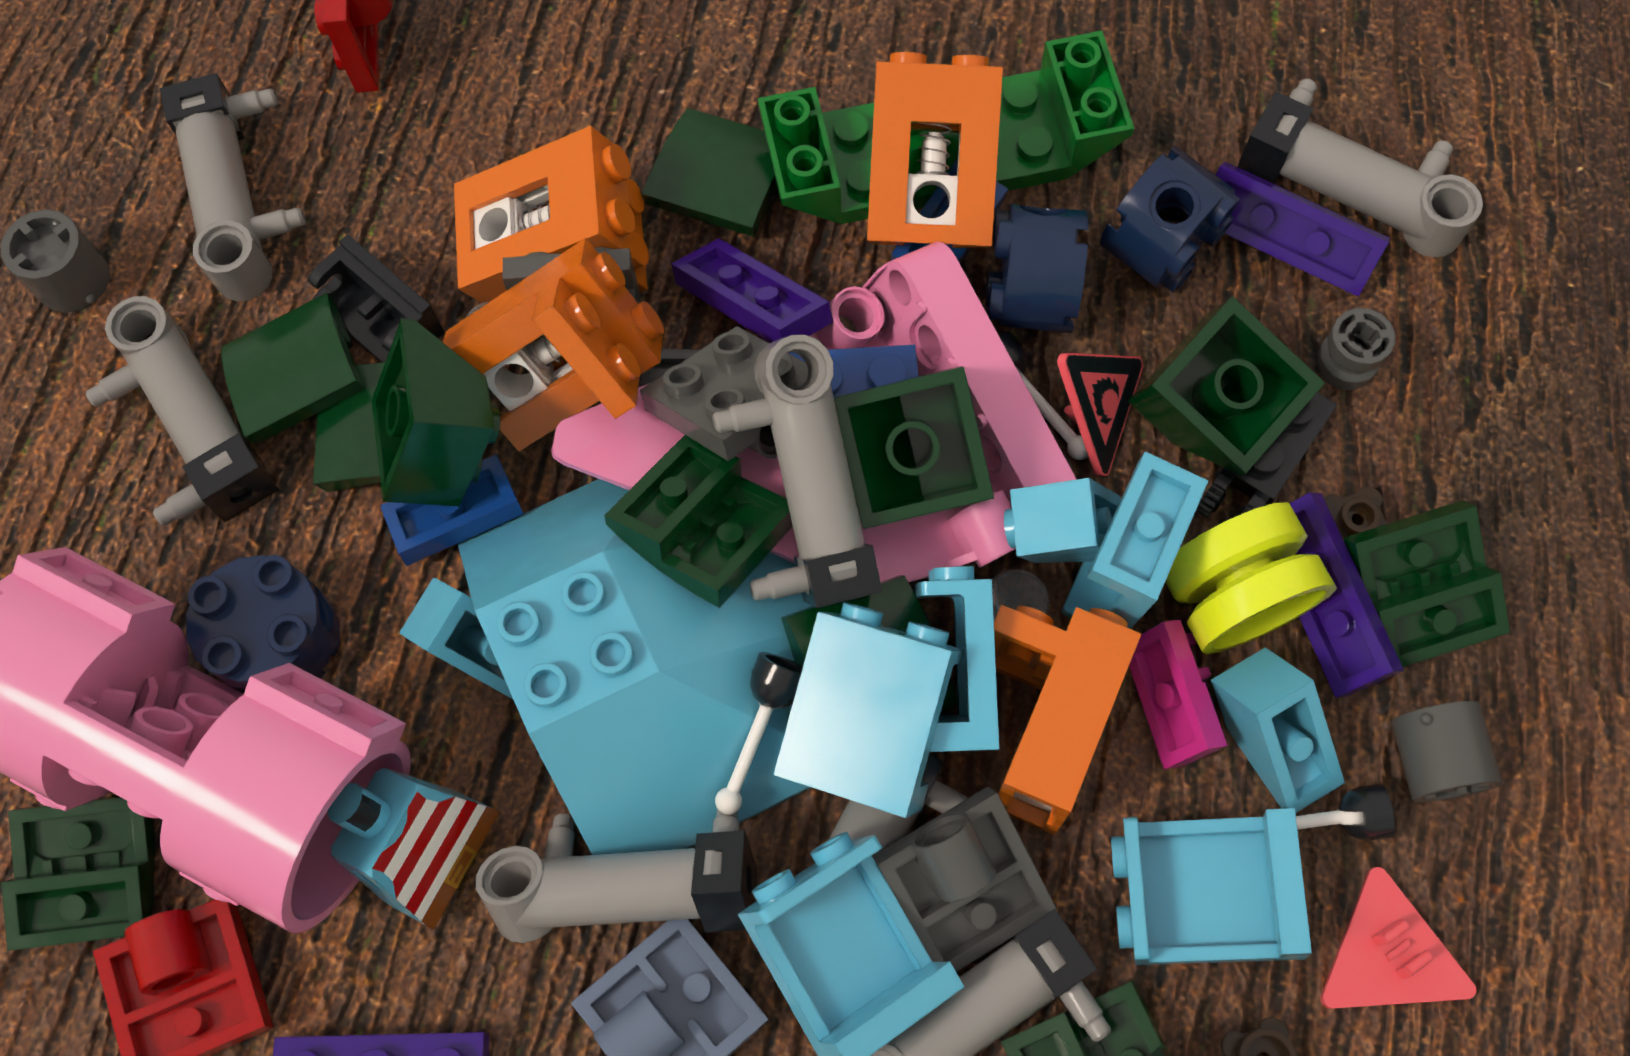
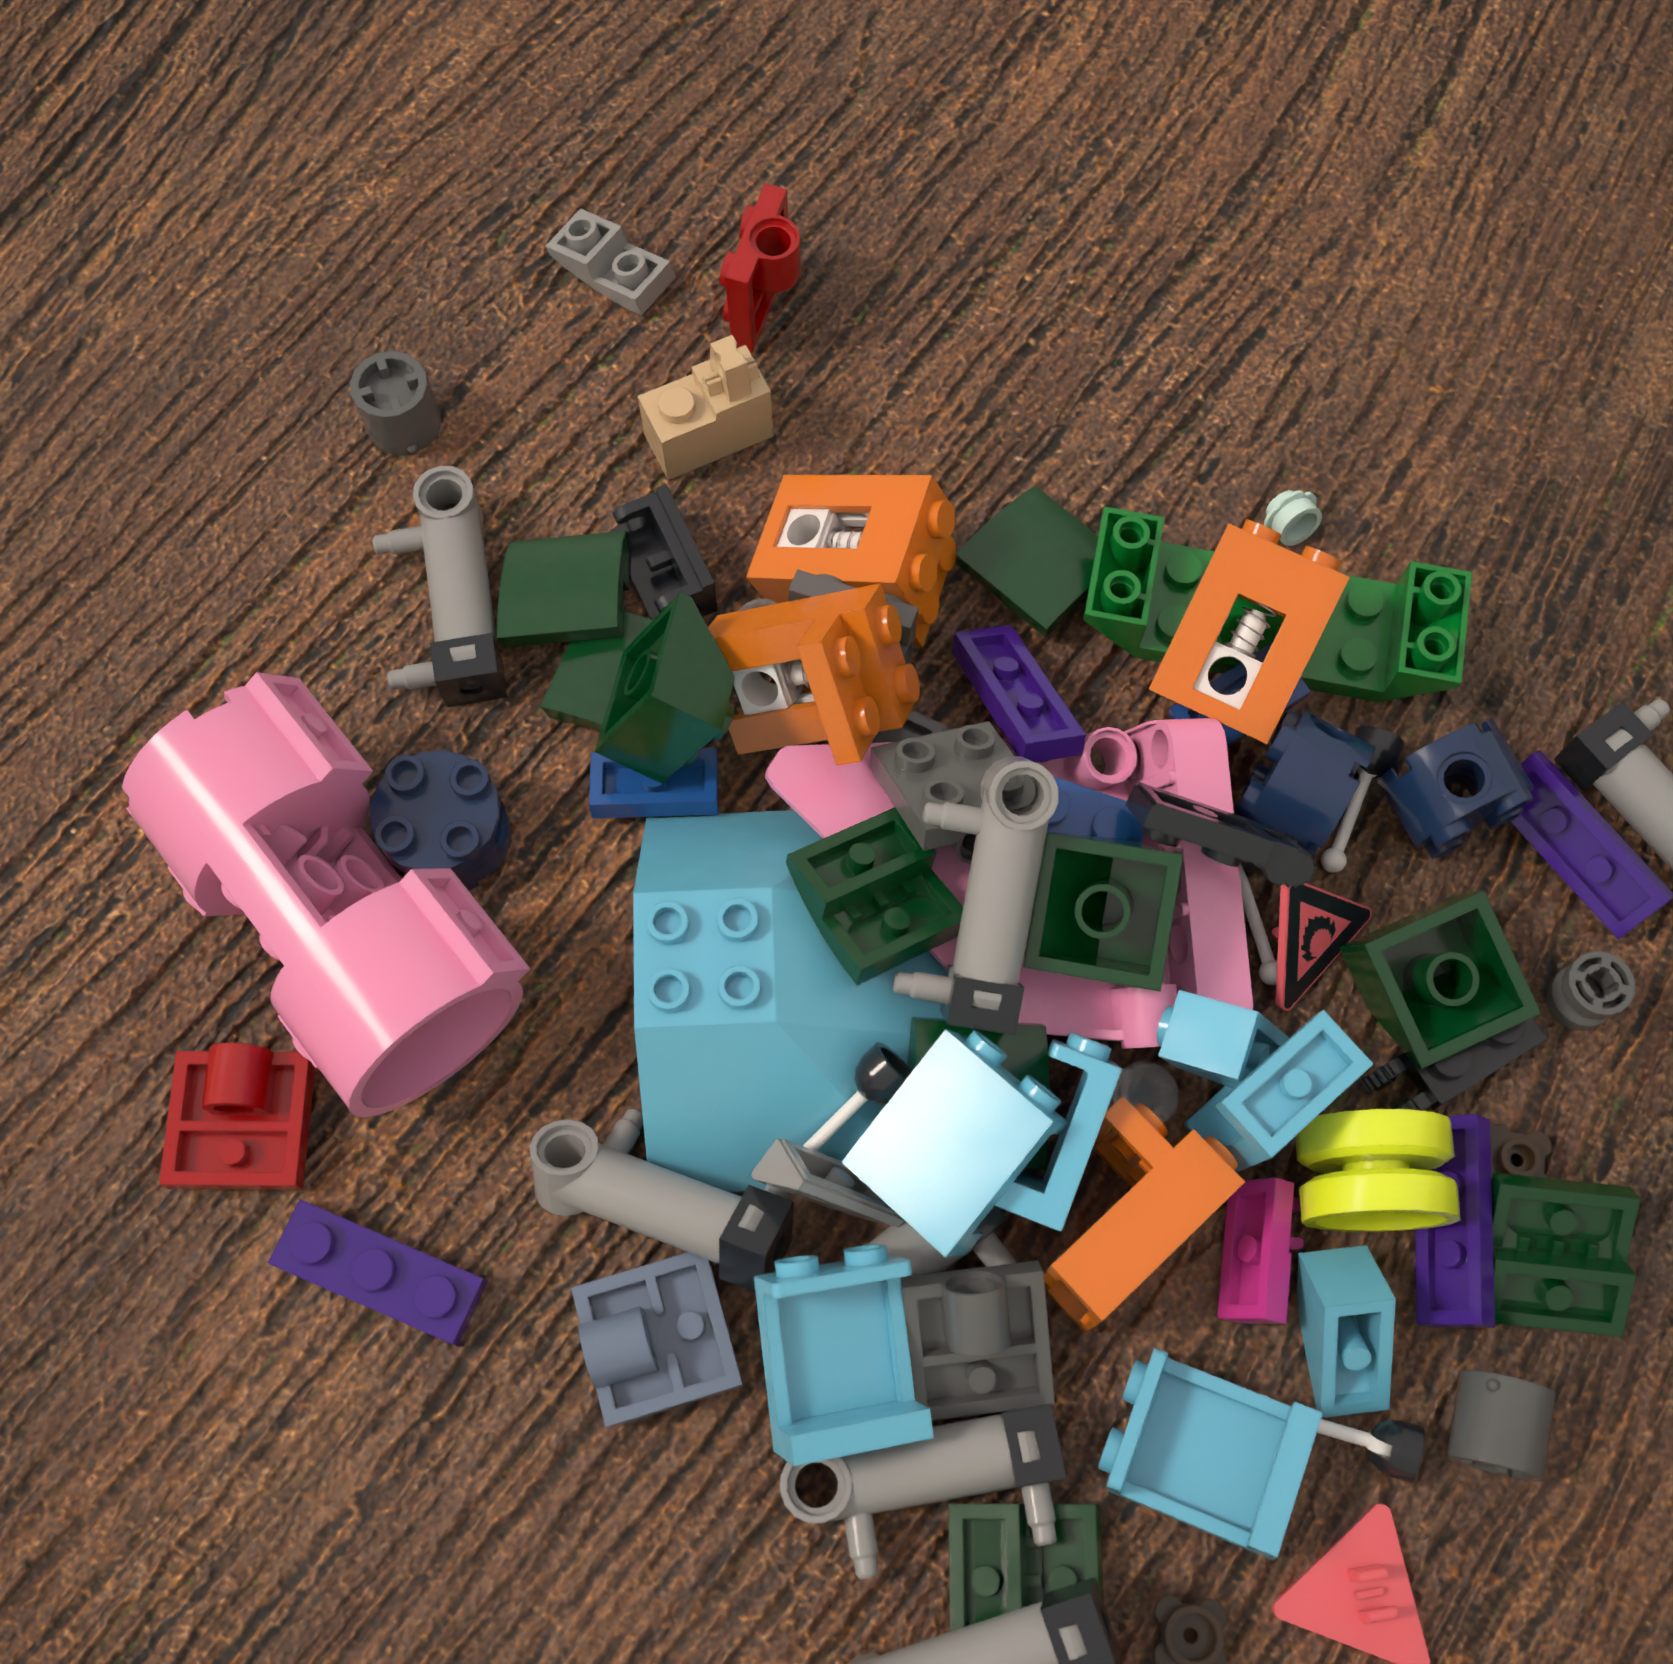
camera: 20 degrees right, 0 degrees up
(77, 873) = (191, 975): dark green slope -> none
(194, 49) = (605, 261): none -> light grey slope
(217, 186) = (581, 330): light grey piece -> none
(359, 154) = (709, 411): none -> tan hinge
(409, 840) = (490, 1075): torso -> none
(450, 630) = (604, 897): medium azure slope -> none
(764, 802) = (822, 1181): none -> light grey slope
(928, 39) = (1293, 516): none -> light aqua plate
(988, 338) = (1221, 834): none -> black hinge
(1098, 218) = (1386, 755): none -> hinge

